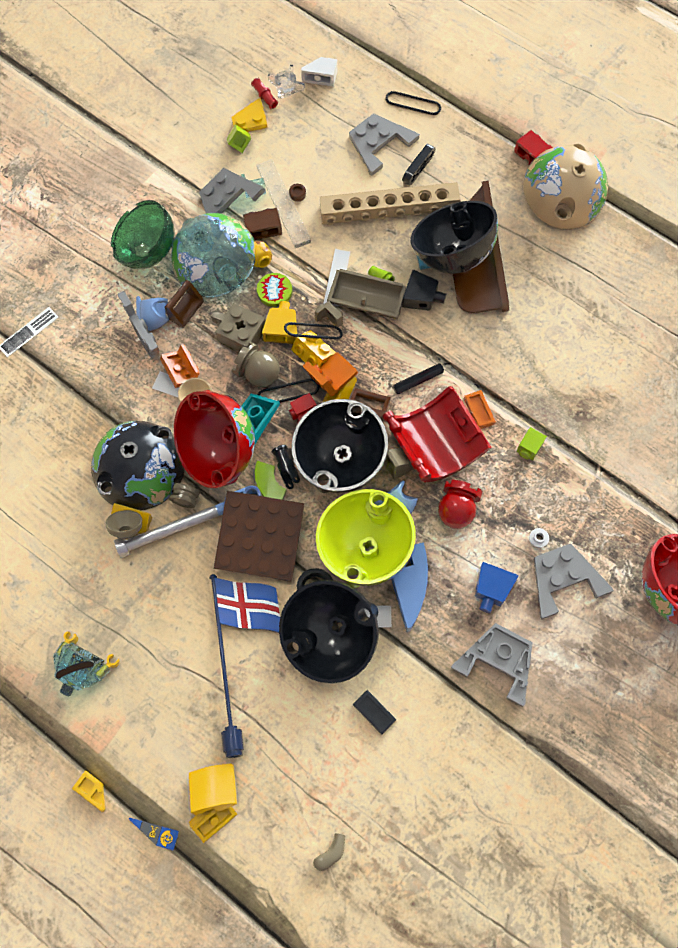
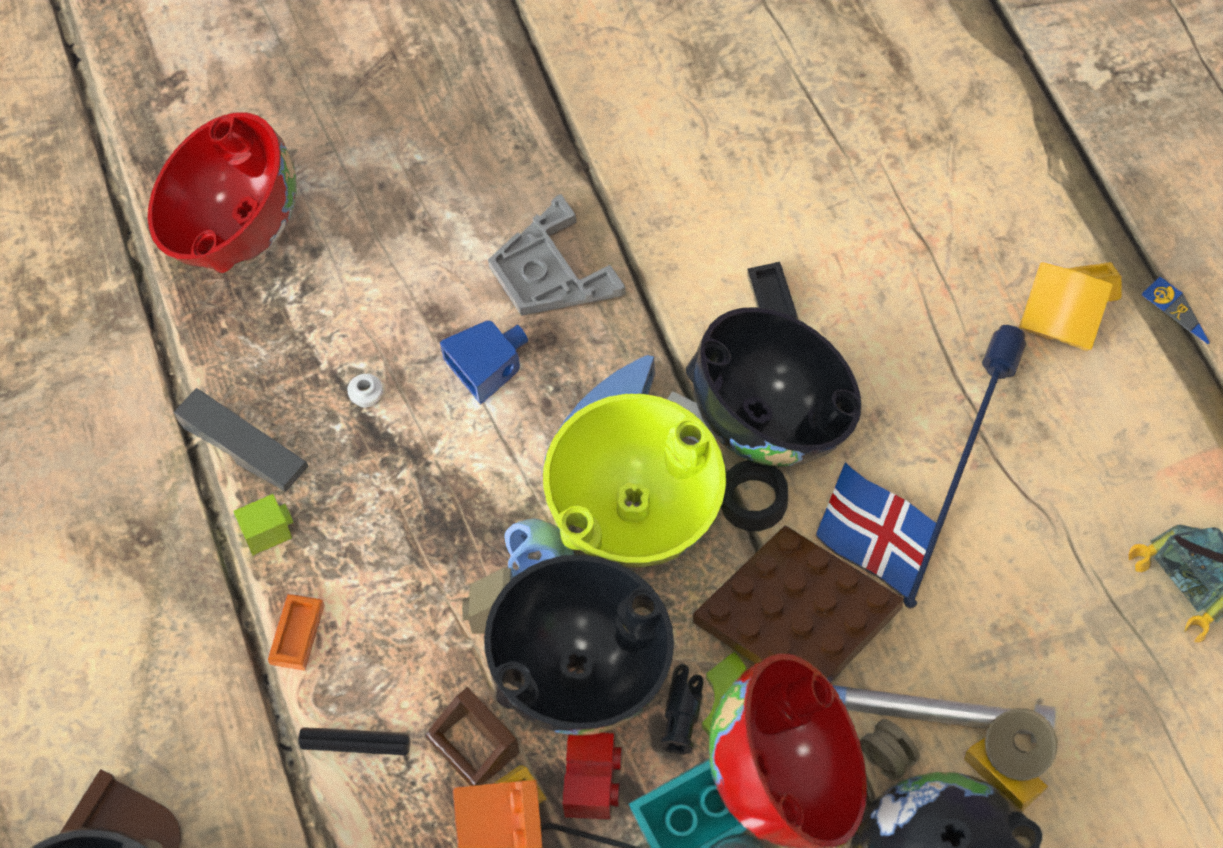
camera: 145 degrees left, 10 degrees down
(331, 856) = (937, 163): dark tan arm -> none
(439, 436) = (400, 614): red hinge -> none
(458, 506) = (452, 484): red tile -> none
(563, 569) = (373, 335): light grey wing -> none
(580, 477) = (240, 439): none -> dark grey slope

